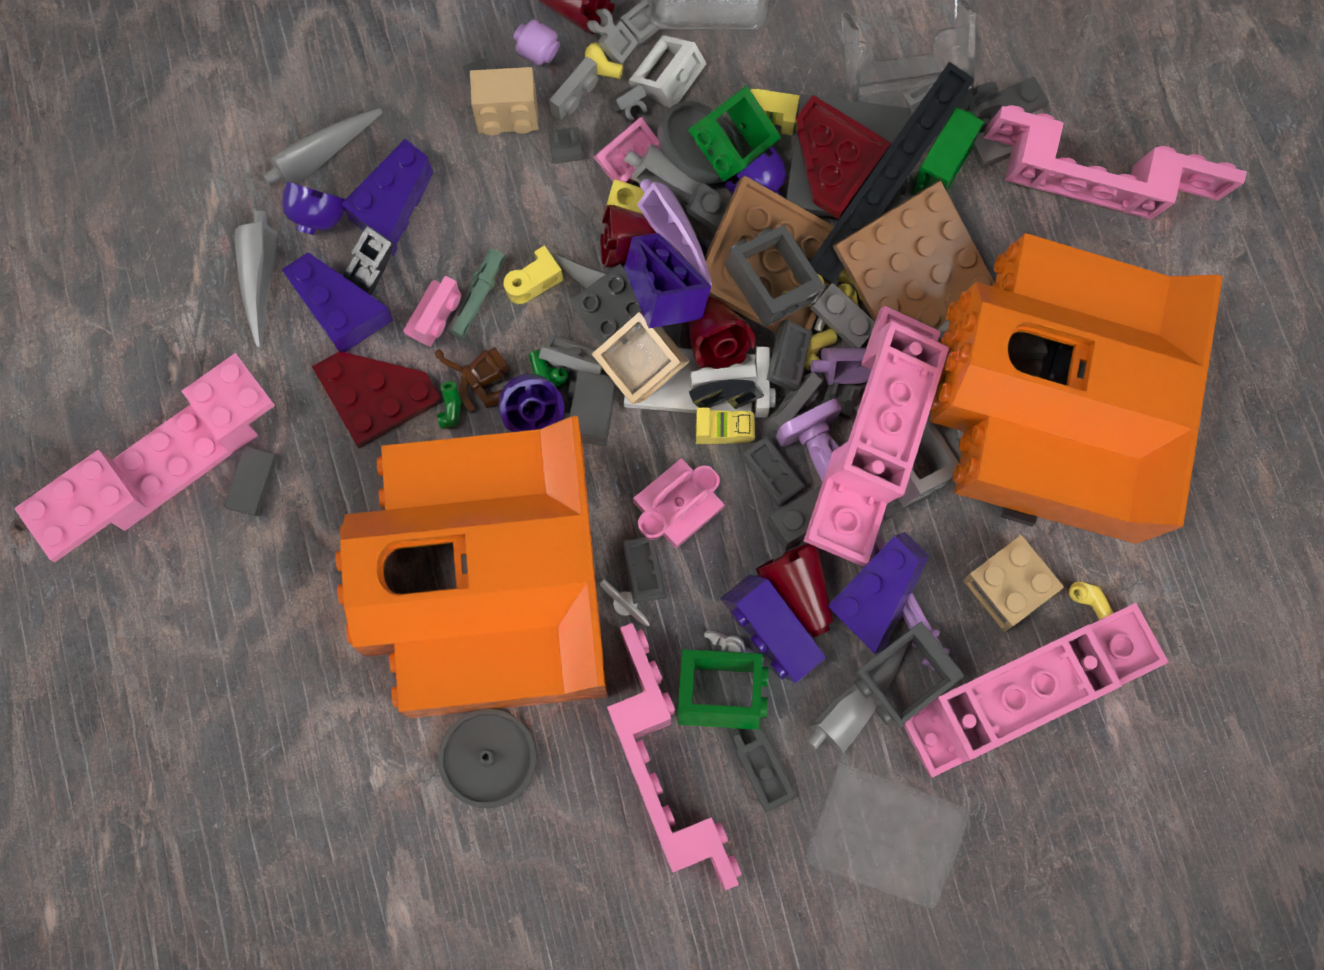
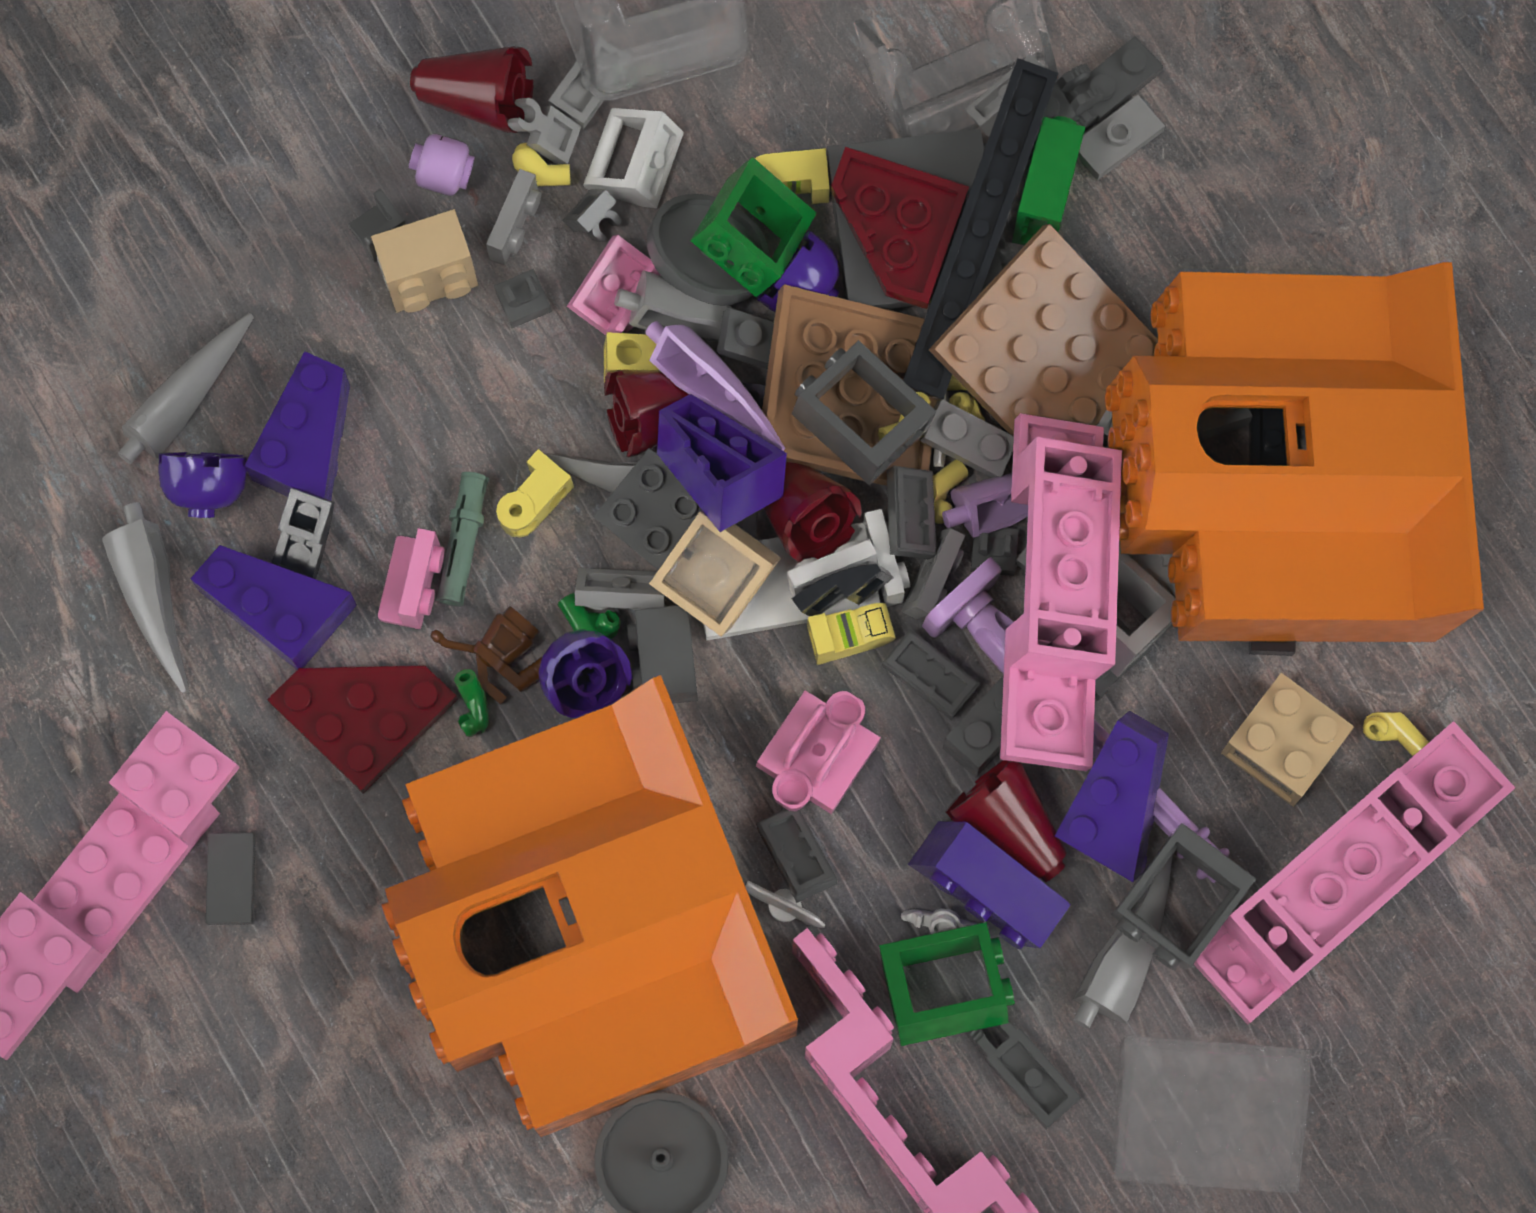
camera: 15 degrees left, 0 degrees up
(1143, 193) = (1328, 158): bright pink bracket -> none

